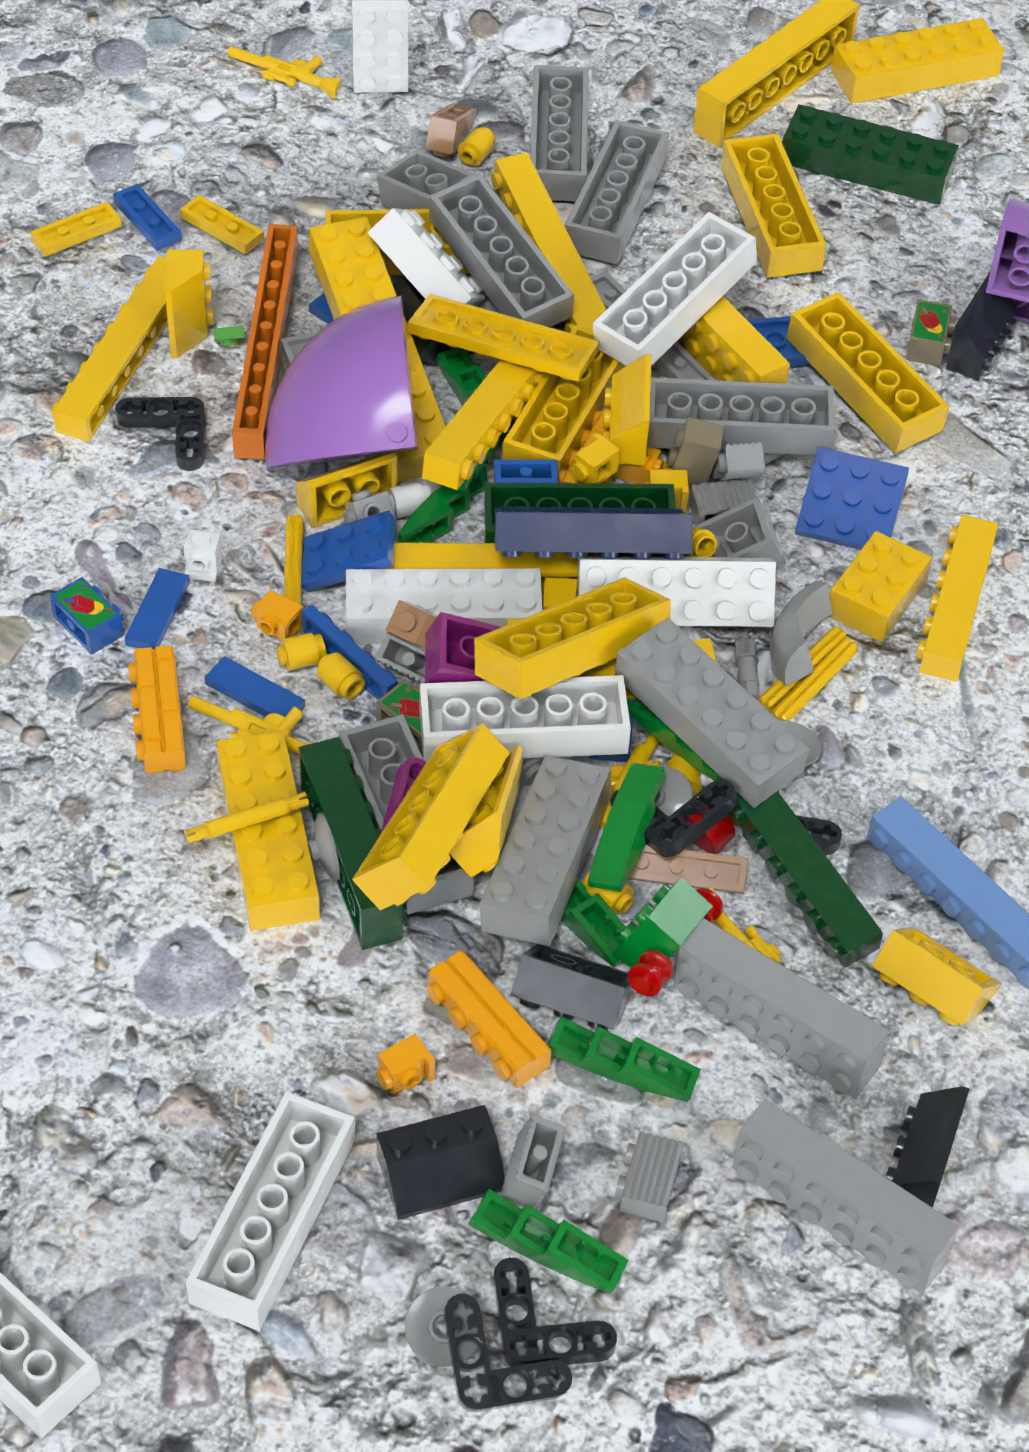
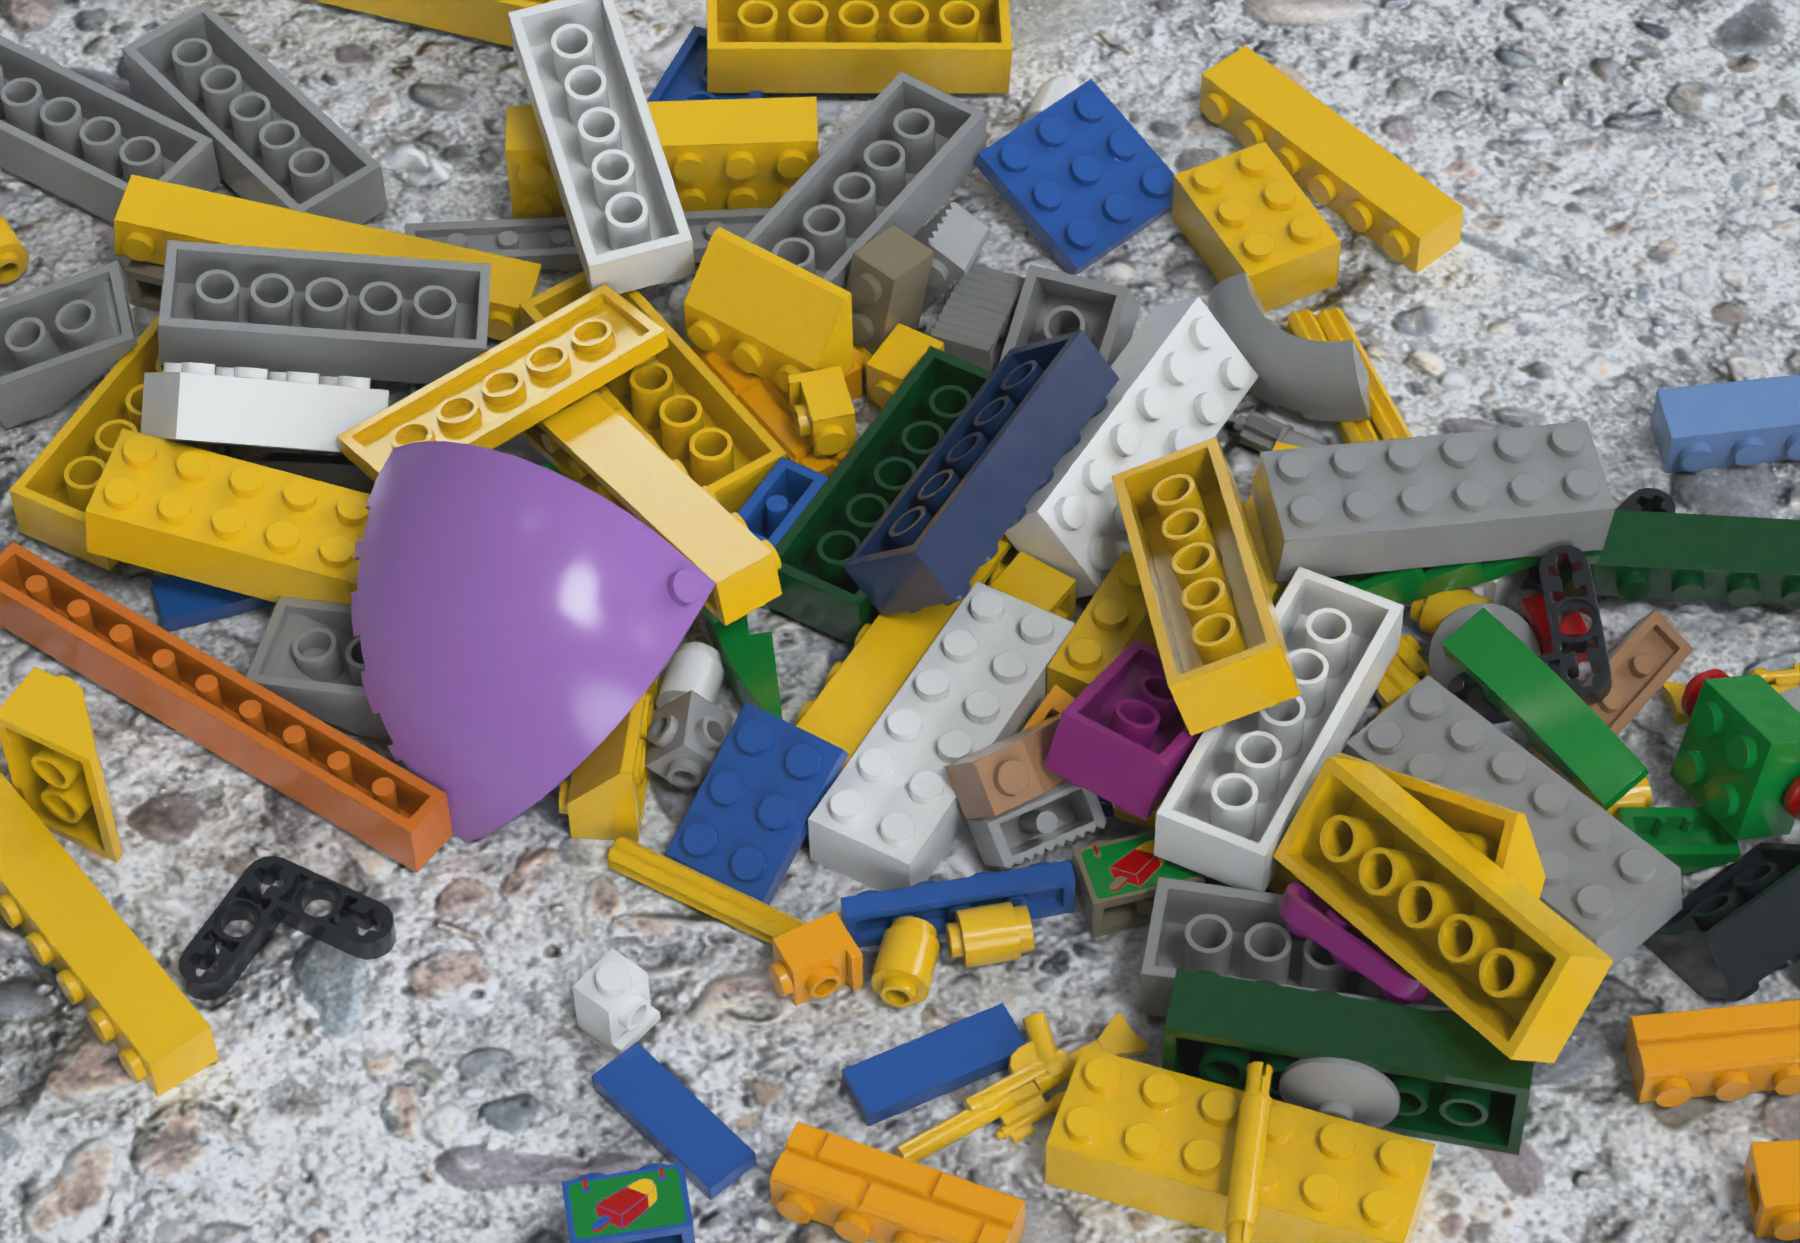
camera: 55 degrees left, 0 degrees up
(229, 335) = (146, 754): bright green plate -> none

